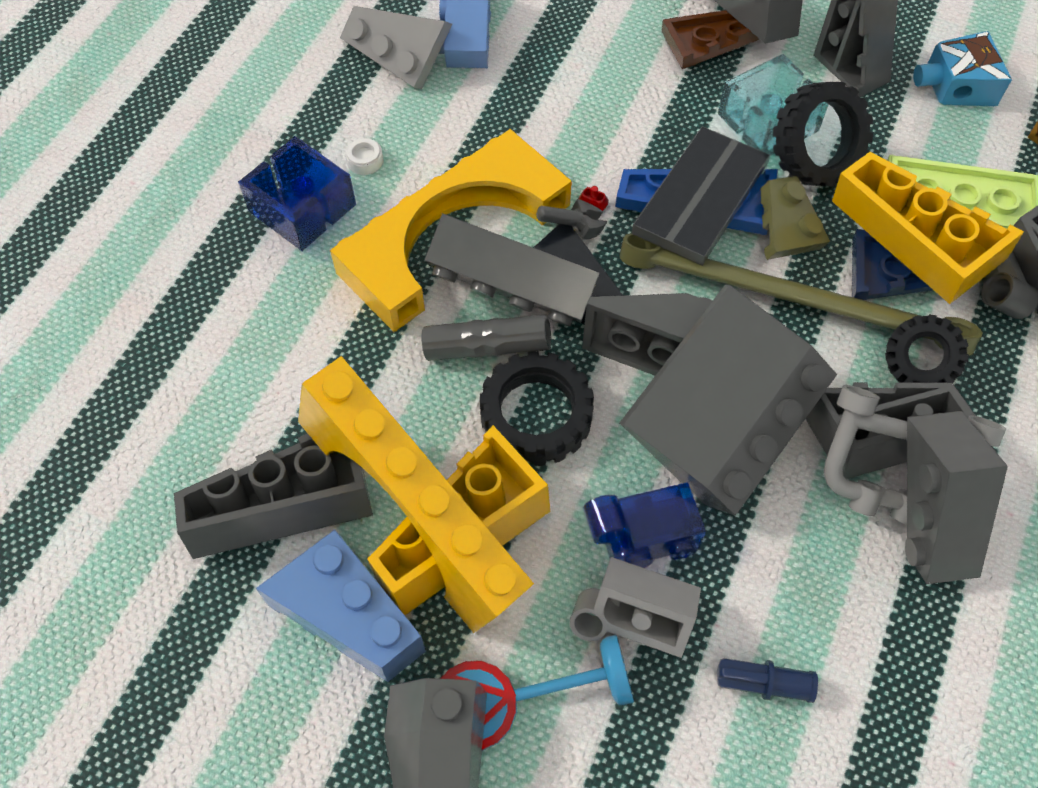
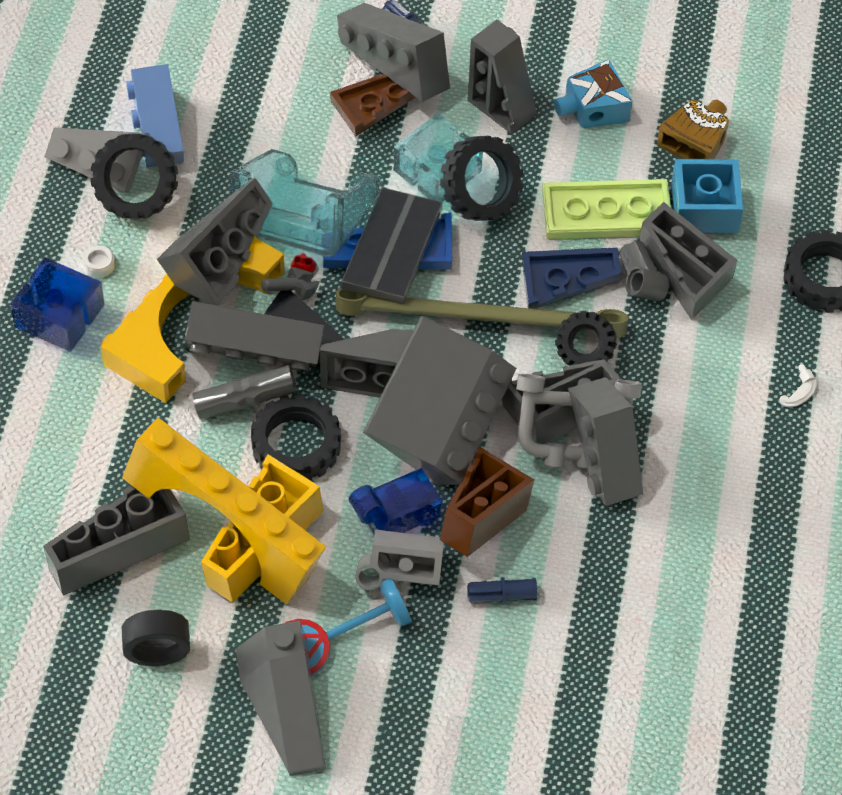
camera: 15 degrees left, 5 degrees down
(281, 654) = (155, 638): none -> black tyre
(344, 605) = (211, 608): medium blue wedge -> none
(391, 55) = (102, 183): none -> black tyre
(490, 161) = (213, 250): none -> dark grey wedge
(578, 130) = (304, 212): none -> clear light blue windscreen
(765, 551) = (485, 502): none -> reddish brown wedge
(790, 219) = (467, 253): olive wing -> none
(923, 226) = (569, 243): yellow wedge -> none

